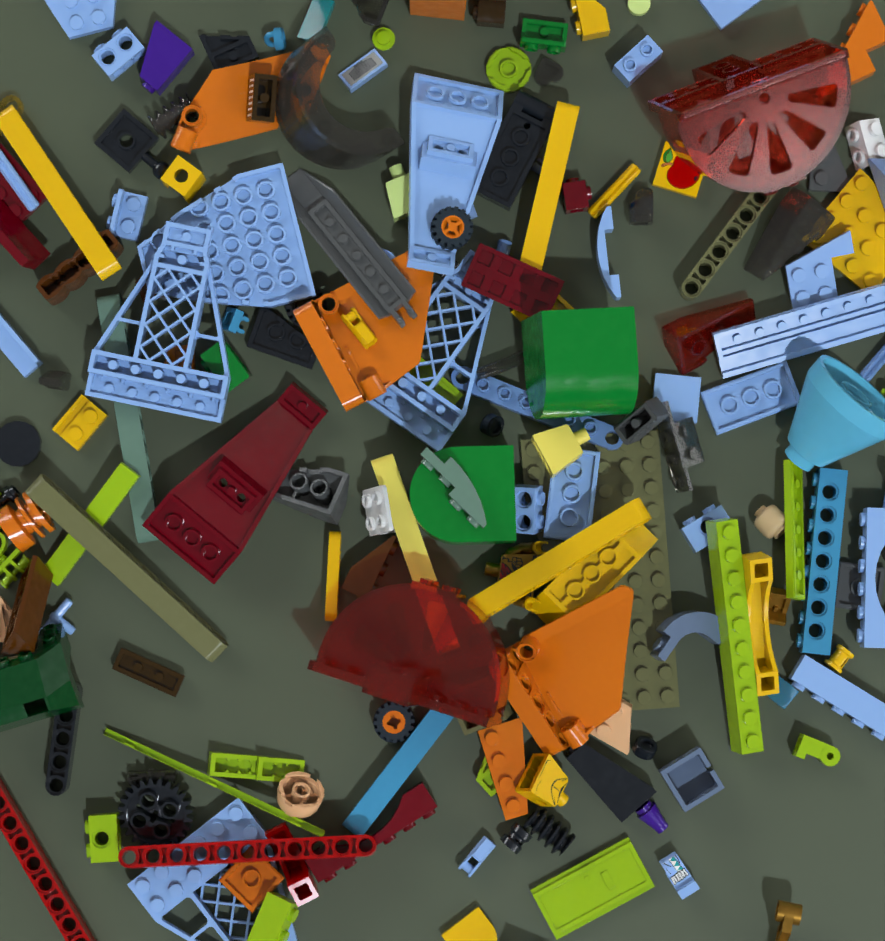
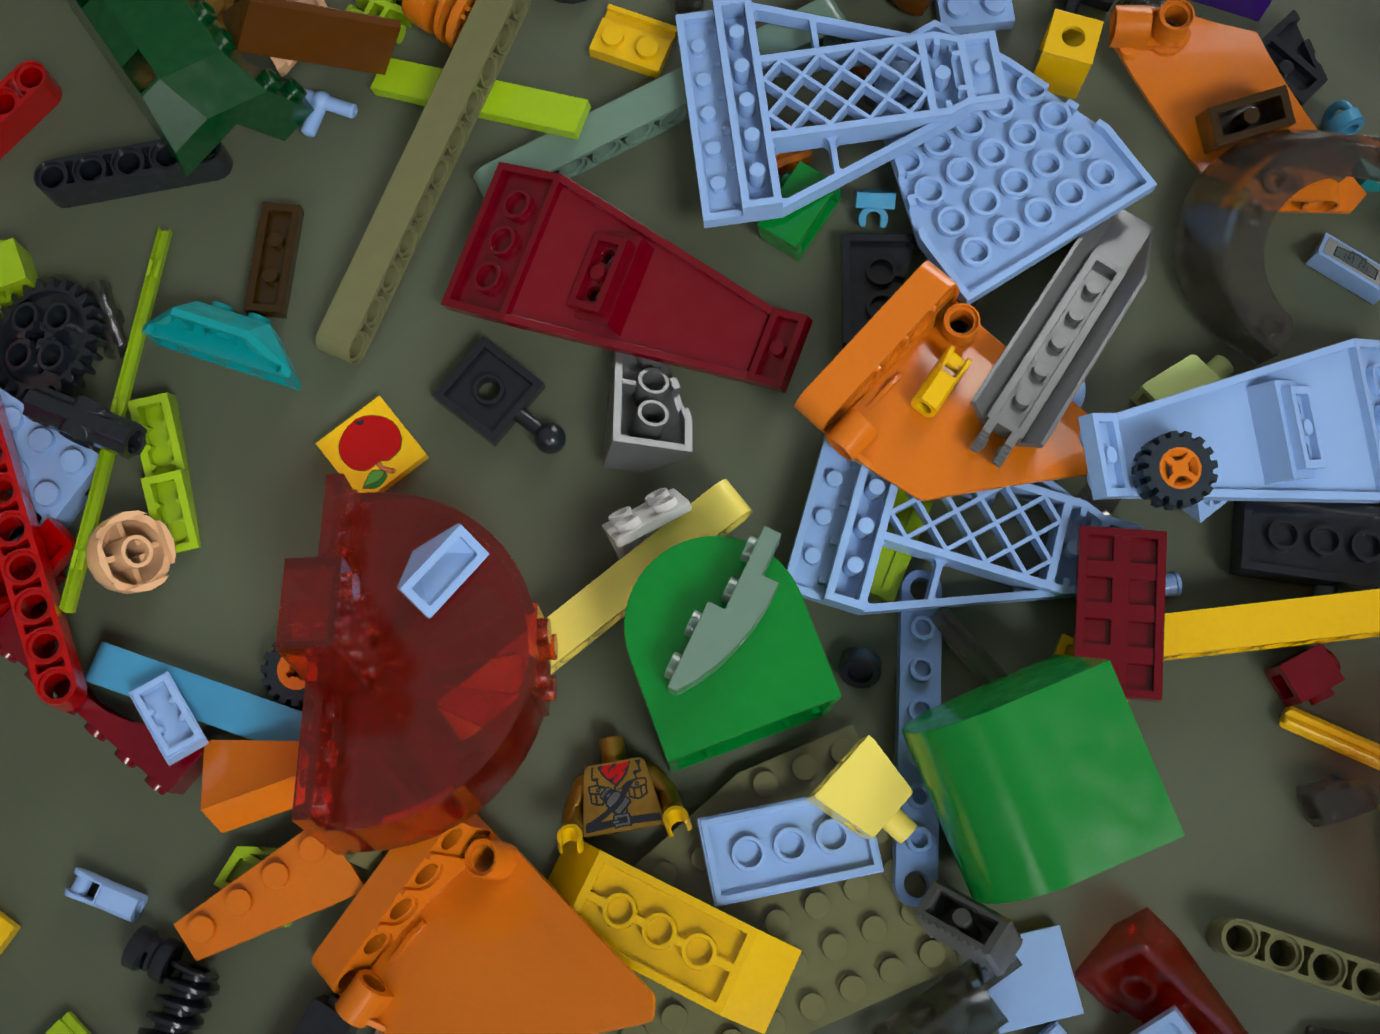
camera: 75 degrees right, 10 degrees down
(190, 710) = (225, 339): none -> teal wedge
(218, 799) = (84, 422): none -> black piece
(281, 649) = (372, 448): none -> tile
(287, 575) = (497, 416): none -> black plate
(333, 573) = (521, 488): yellow beam -> none
(364, 573) = (541, 541): reddish brown slope -> none
(376, 624) = (440, 568): none -> light blue slope
(399, 794) = (168, 718): none -> light blue plate
(447, 757) = (247, 780): none -> orange slope
(532, 509) = (734, 761): light blue brick -> none
(543, 781) = (261, 970): yellow torso -> none
(562, 557) = (675, 869): yellow beam -> none
(610, 281) = (1274, 746): light blue slope -> none

